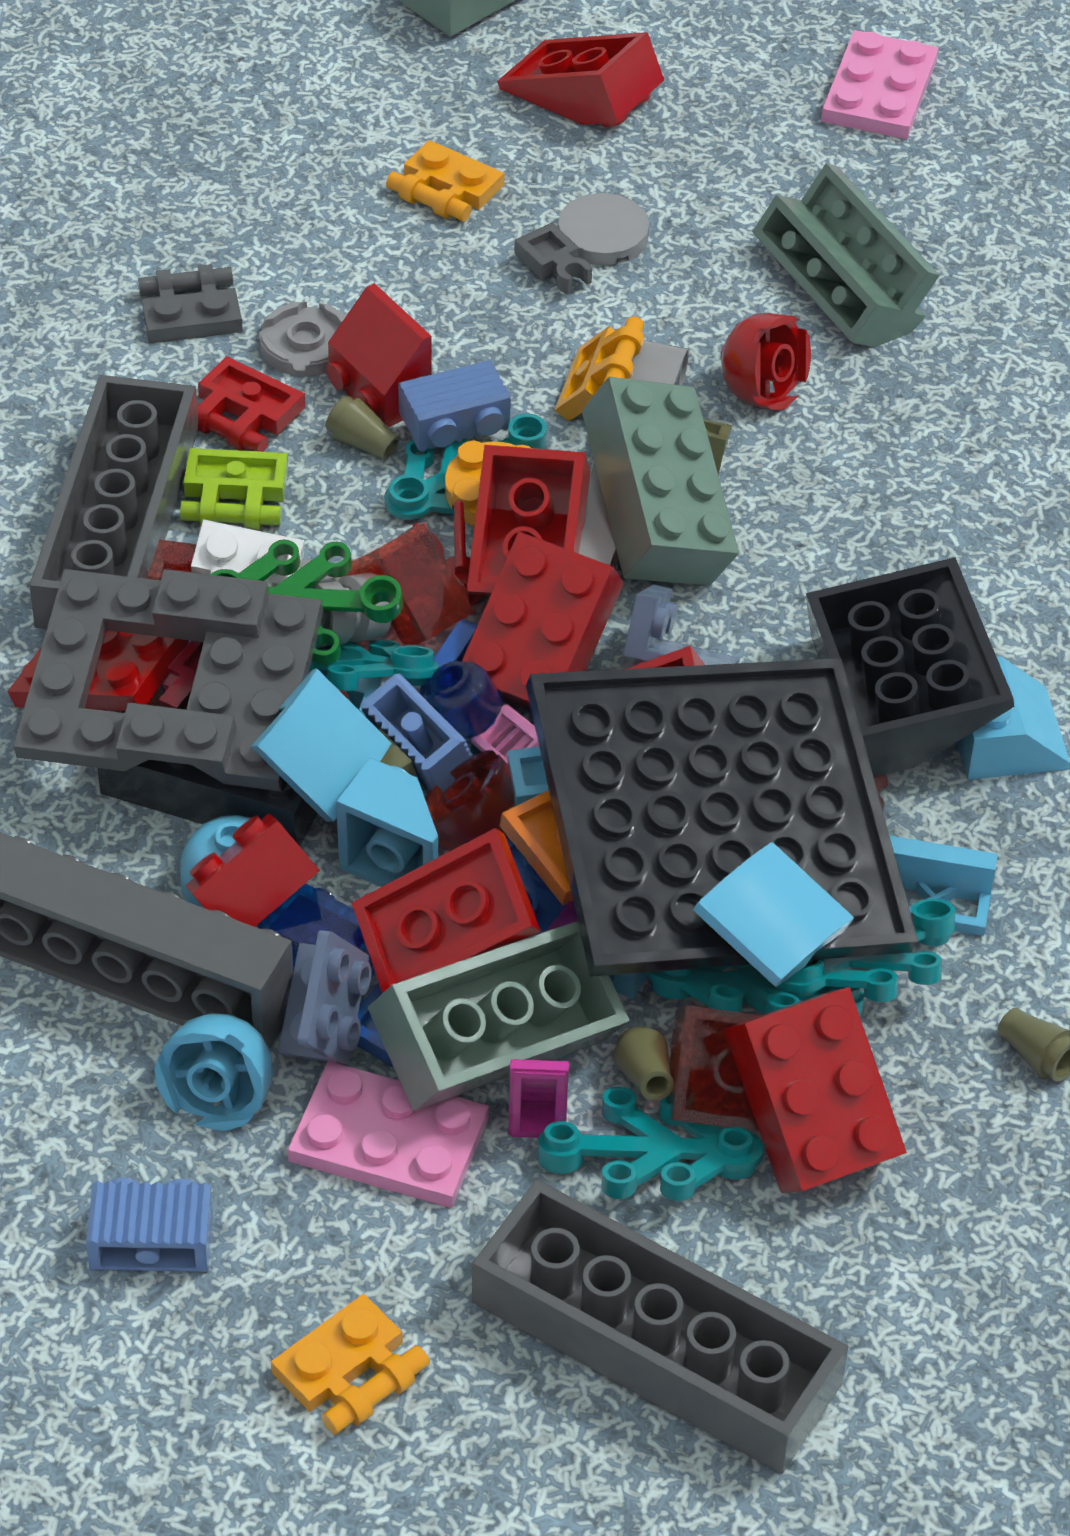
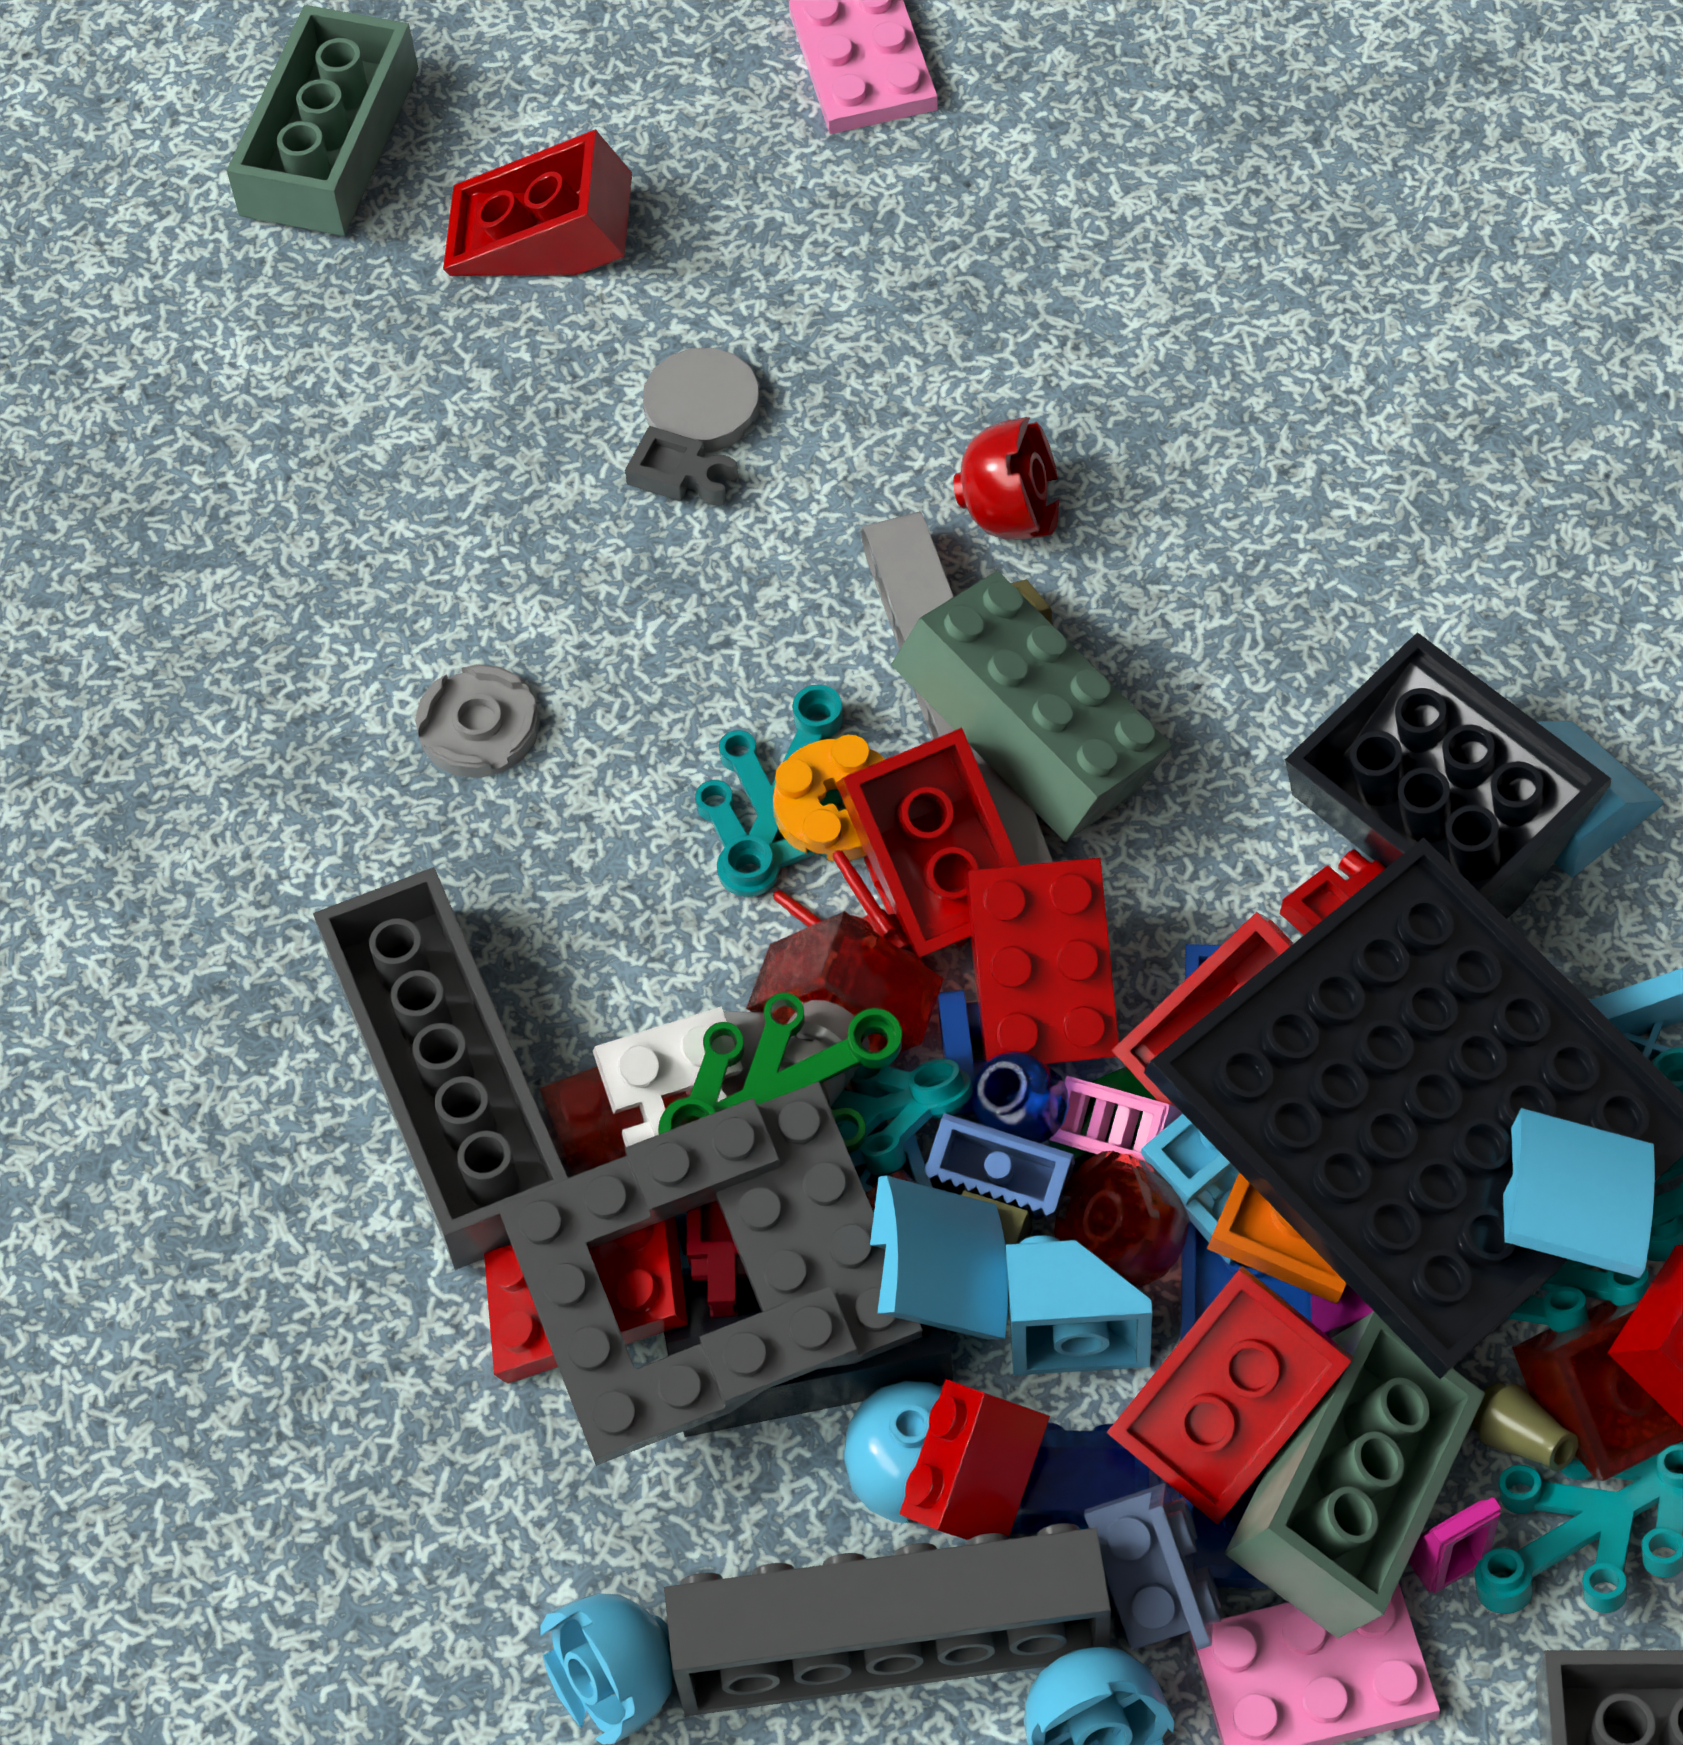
camera: 25 degrees left, 10 degrees up
(190, 314) = (324, 760): dark grey plate -> none
(234, 475) = (539, 946): lime plate -> none
(250, 396) = (480, 833): red plate -> none
(361, 428) = (634, 806): olive cone -> none
(376, 351) = (602, 709): red slope -> none
(446, 181) = (482, 418): light orange plate -> none
(454, 405) = (725, 725): medium blue brick -> none
(597, 359) = (831, 595): light orange plate -> none
(650, 620) = (1179, 910): sand blue bracket -> none
(848, 259) = (1005, 302): sand green brick -> none

